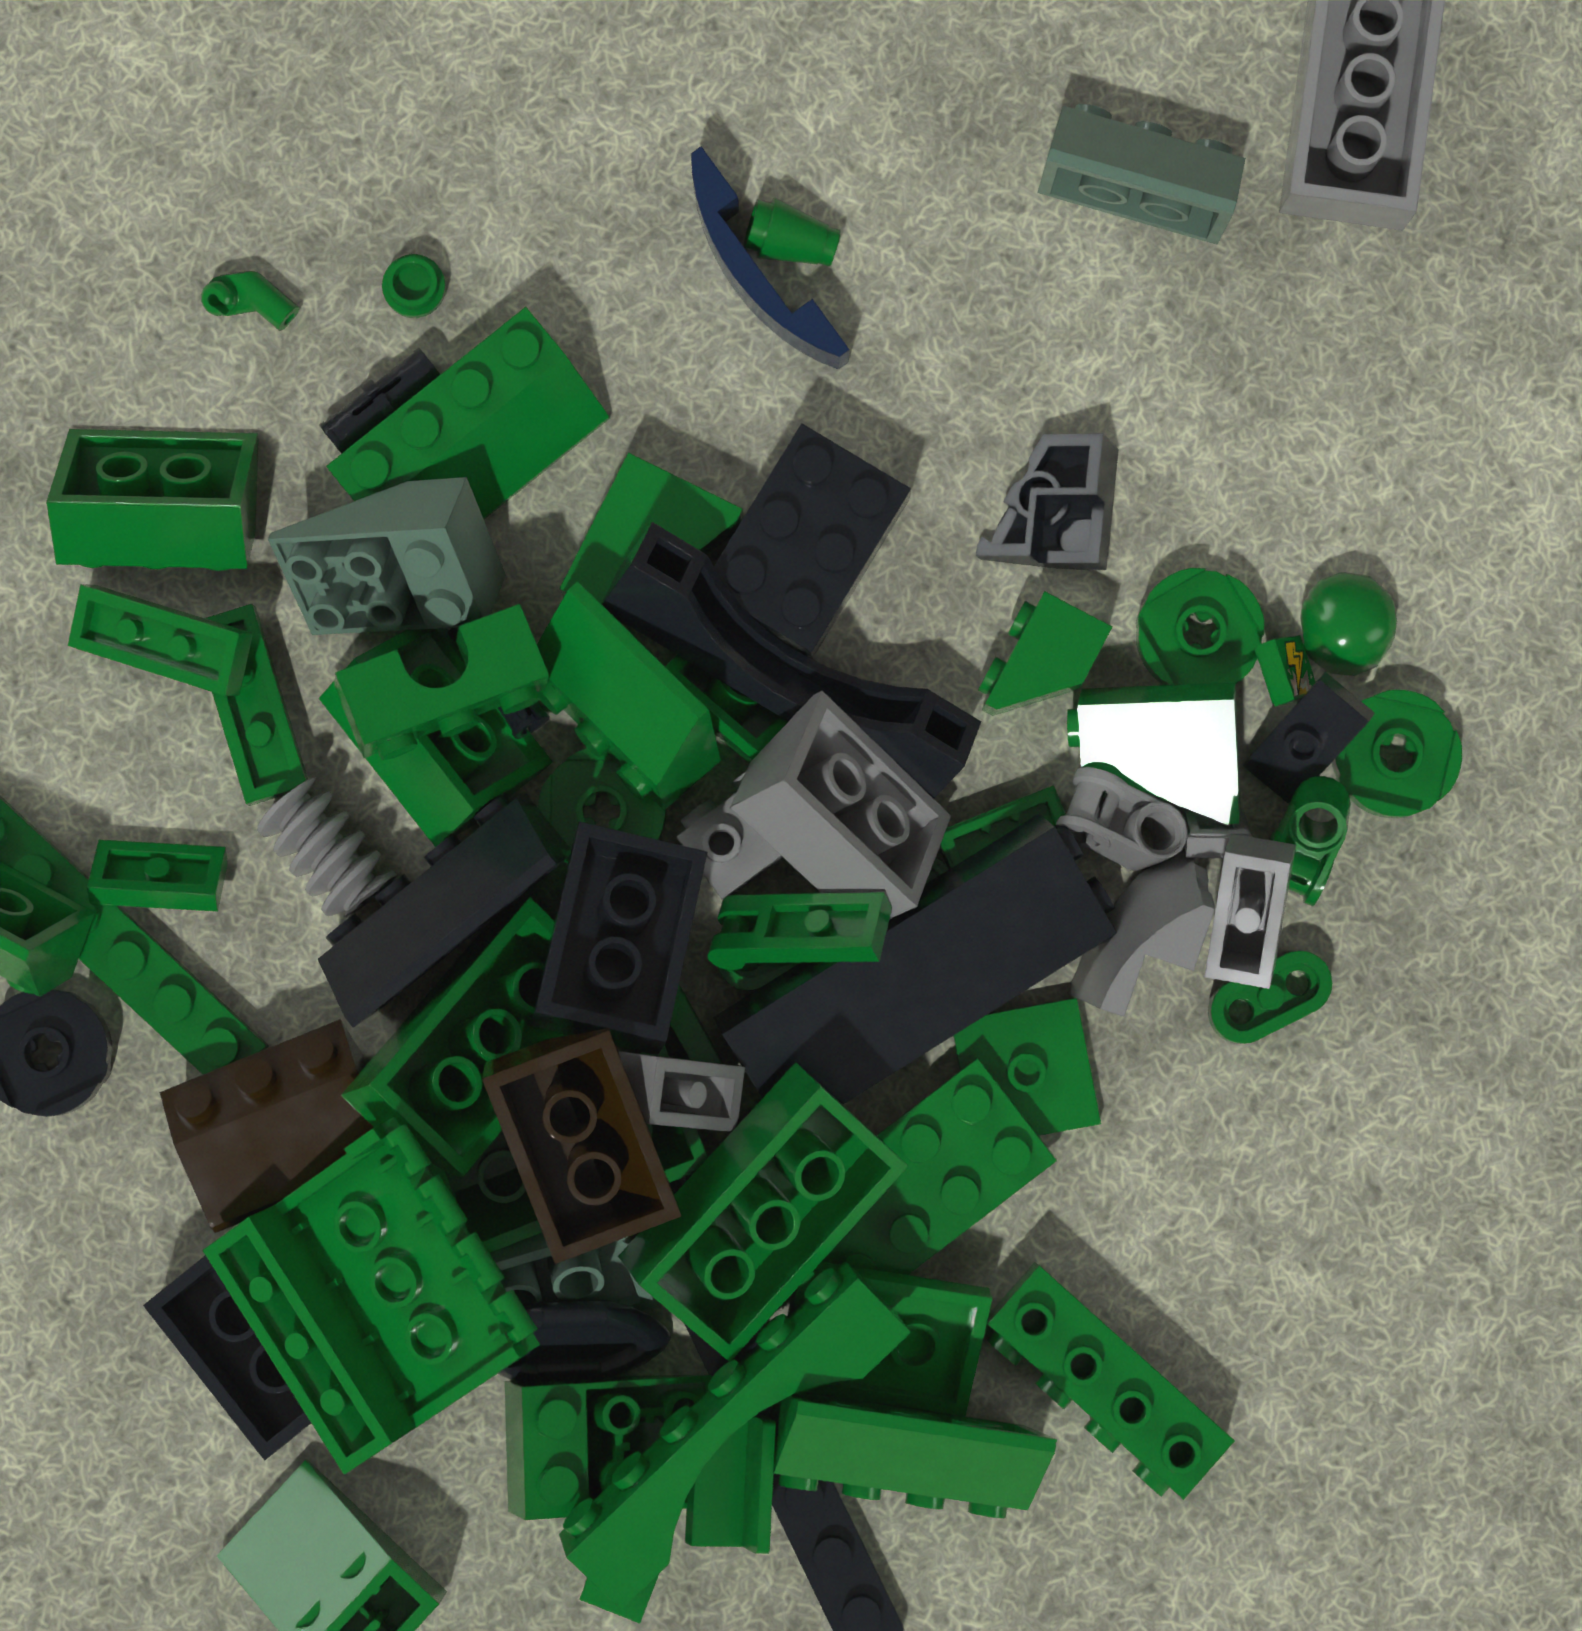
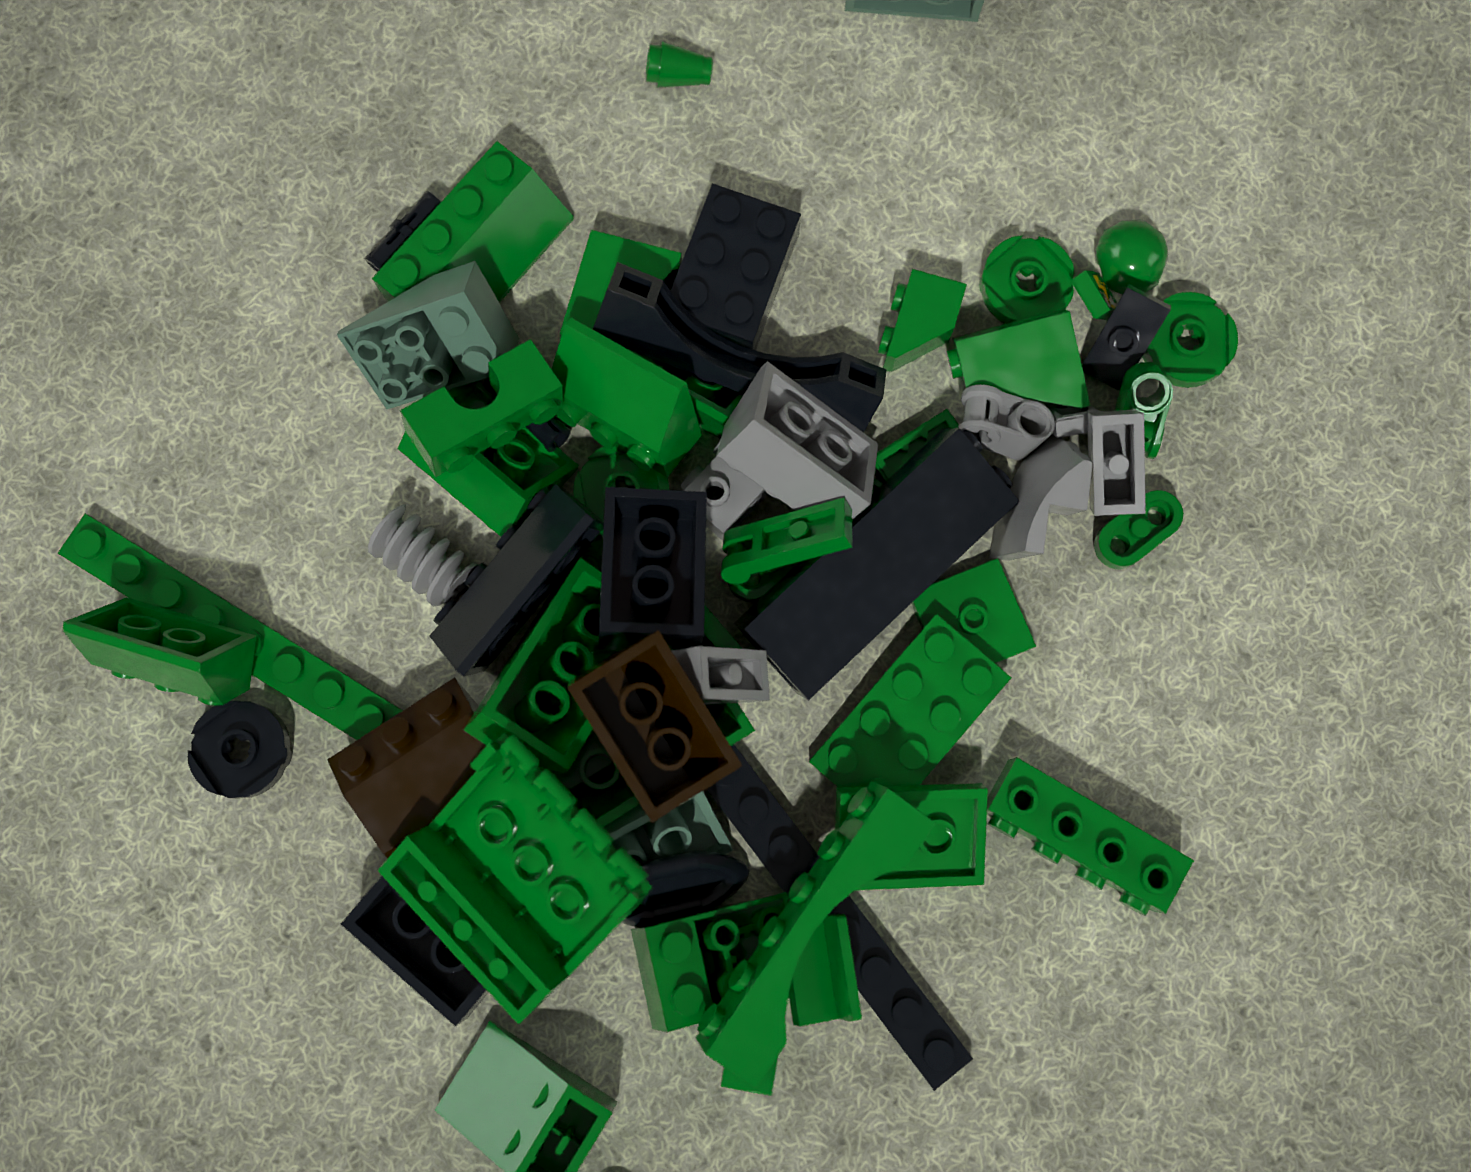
camera: 10 degrees left, 5 degrees down
(155, 499) = (252, 334): green slope -> none
(157, 875) = (300, 601): green plate -> none
(160, 640) = (273, 428): green plate -> none
(248, 293) = (297, 180): green arm -> none
(258, 720) = (347, 463): green plate -> none
(413, 286) = (415, 152): green plate -> none
(763, 1212) = (803, 754): green brick -> none
(803, 329) = (699, 127): dark blue slope -> none
(908, 1452) = (951, 920): green slope -> none
(1060, 507) = (908, 216): black slope -> none

